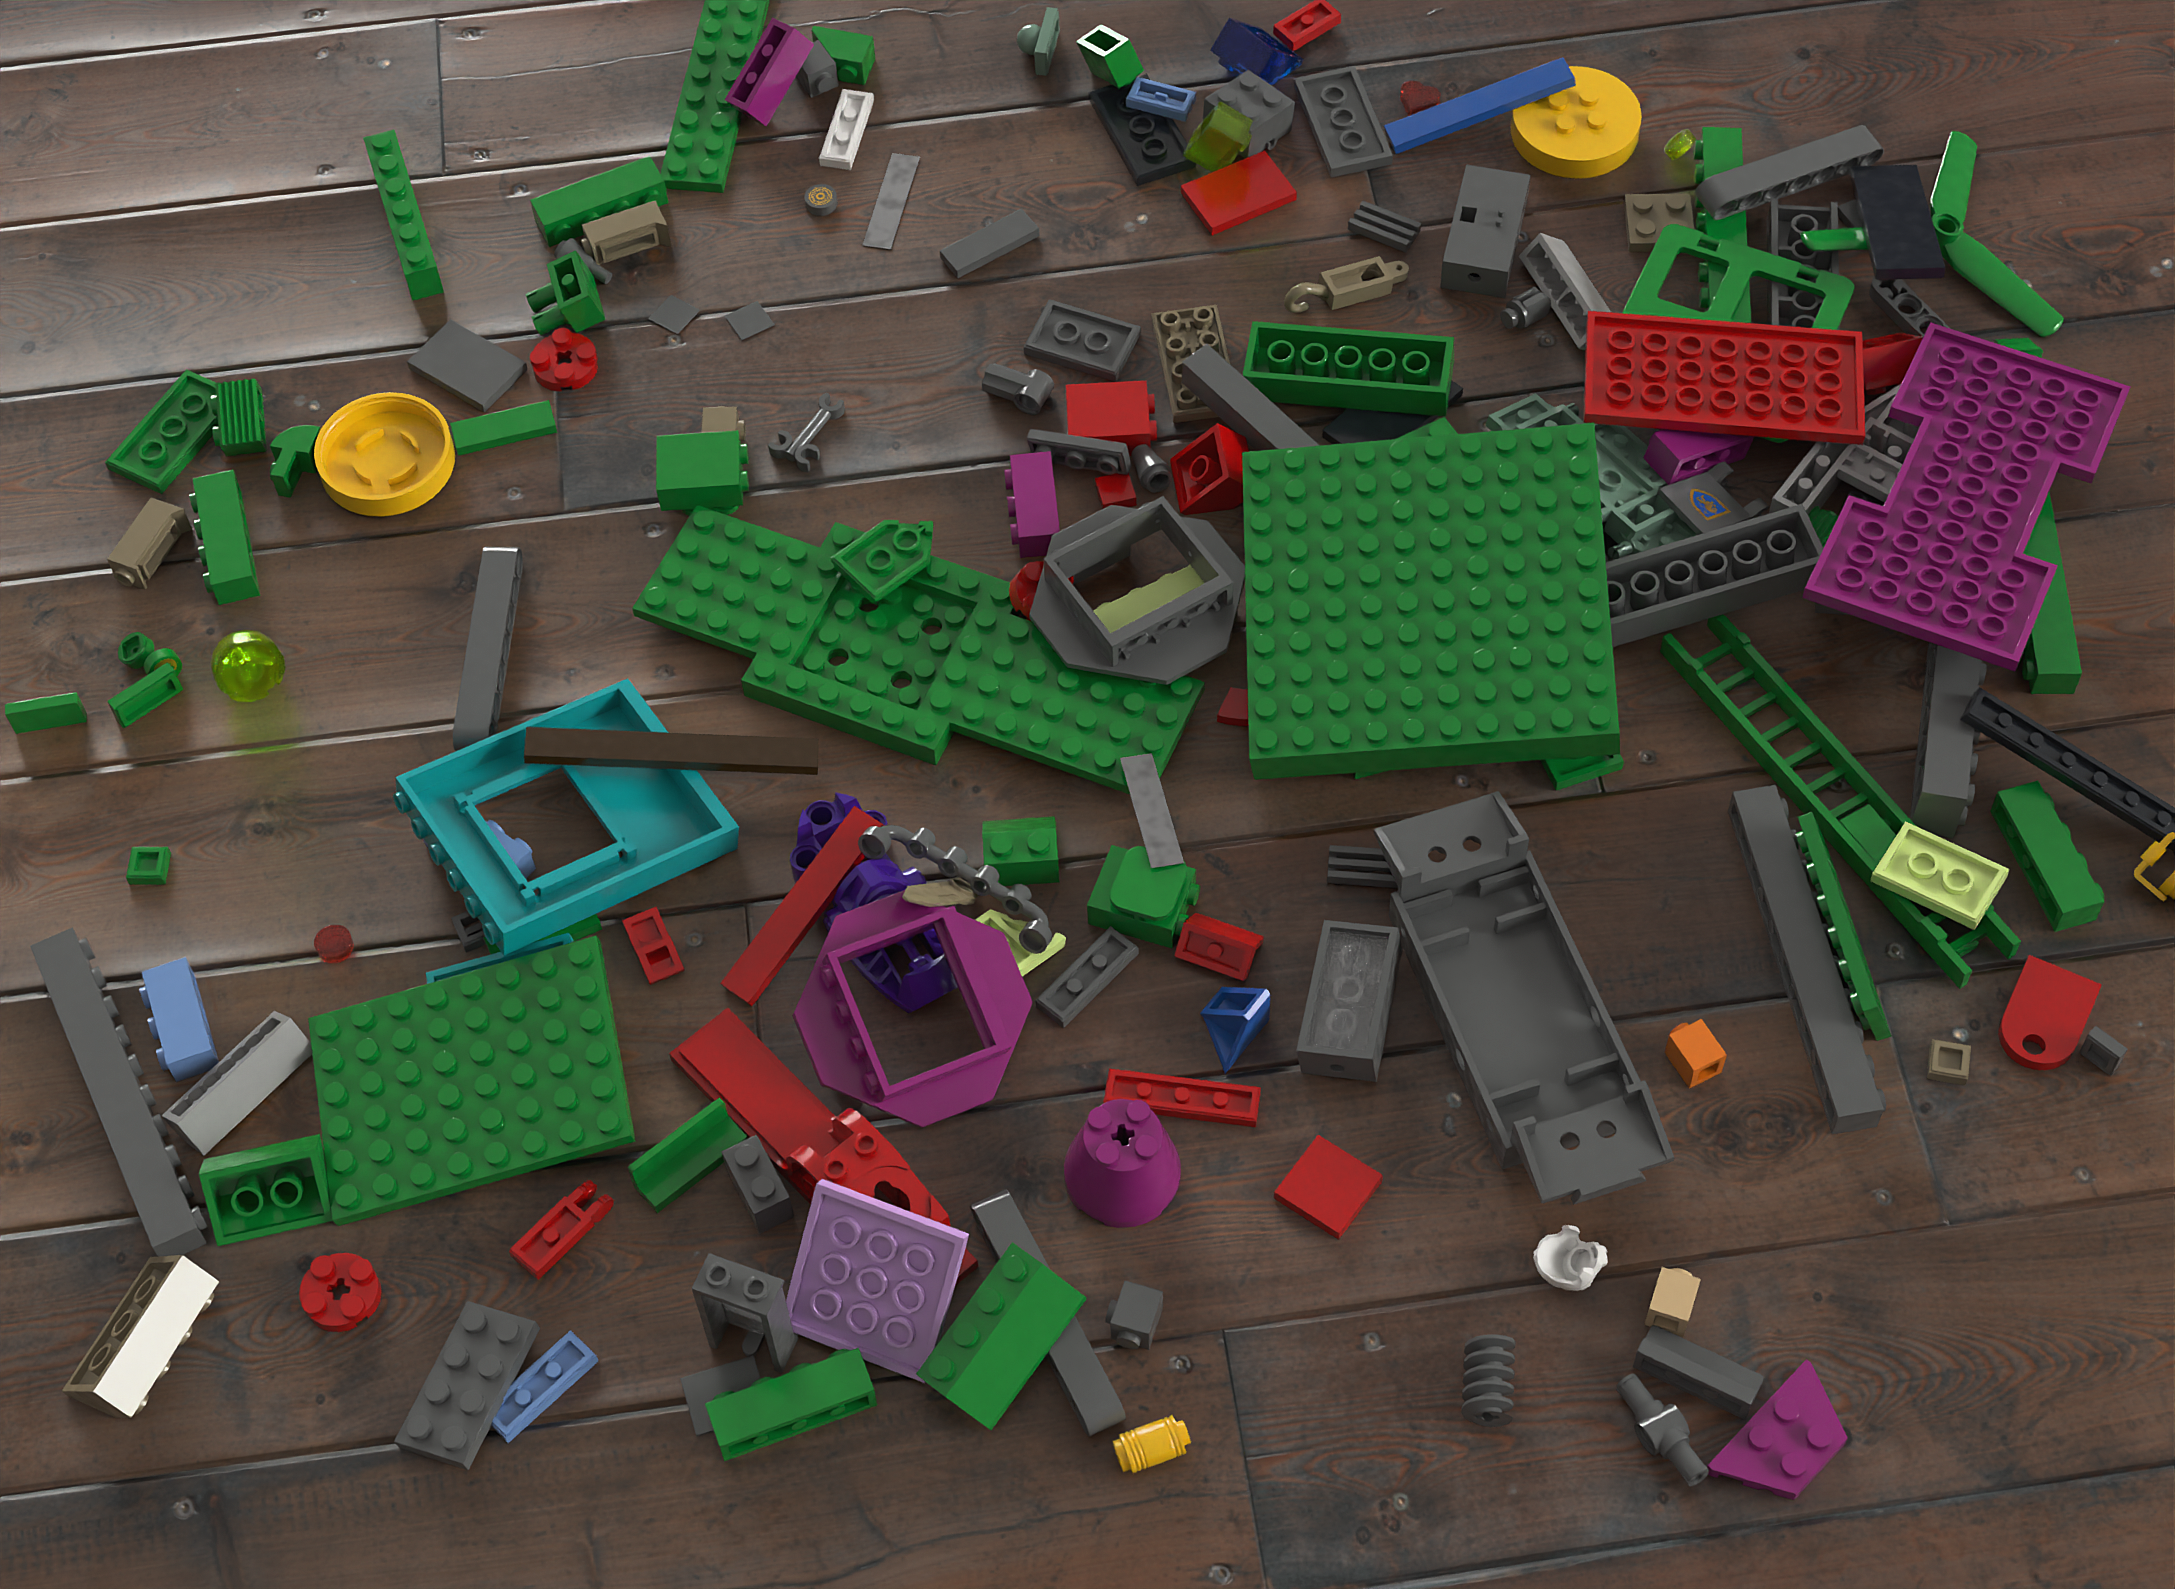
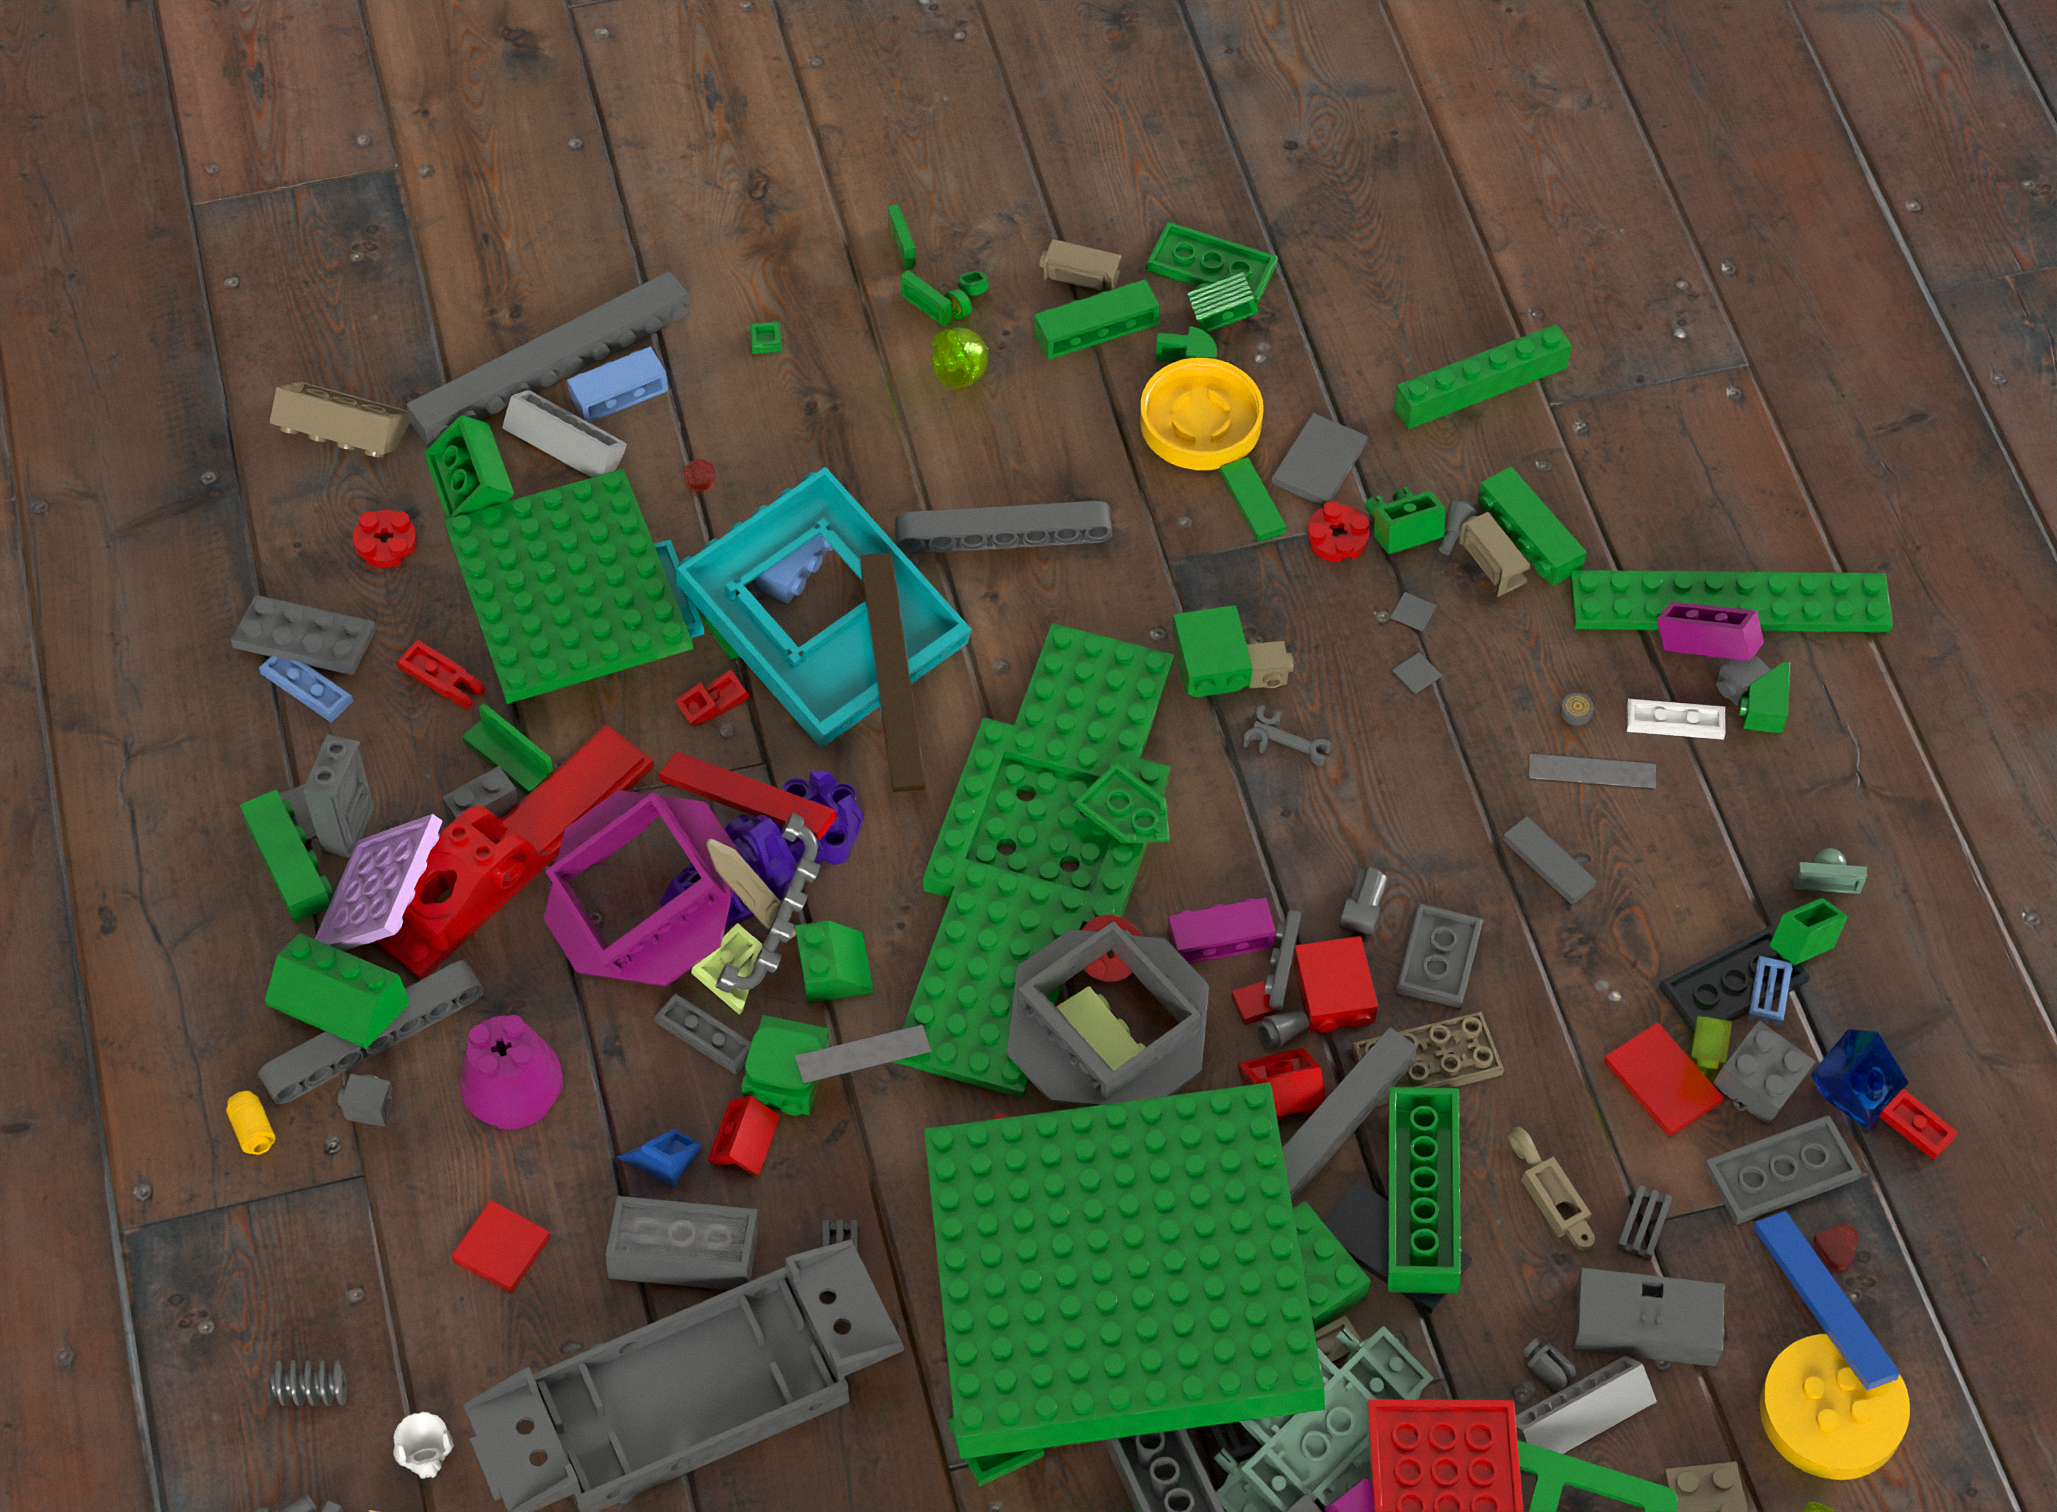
camera: 80 degrees right, 0 degrees up
(1186, 1097) = (586, 1122): red tile -> none

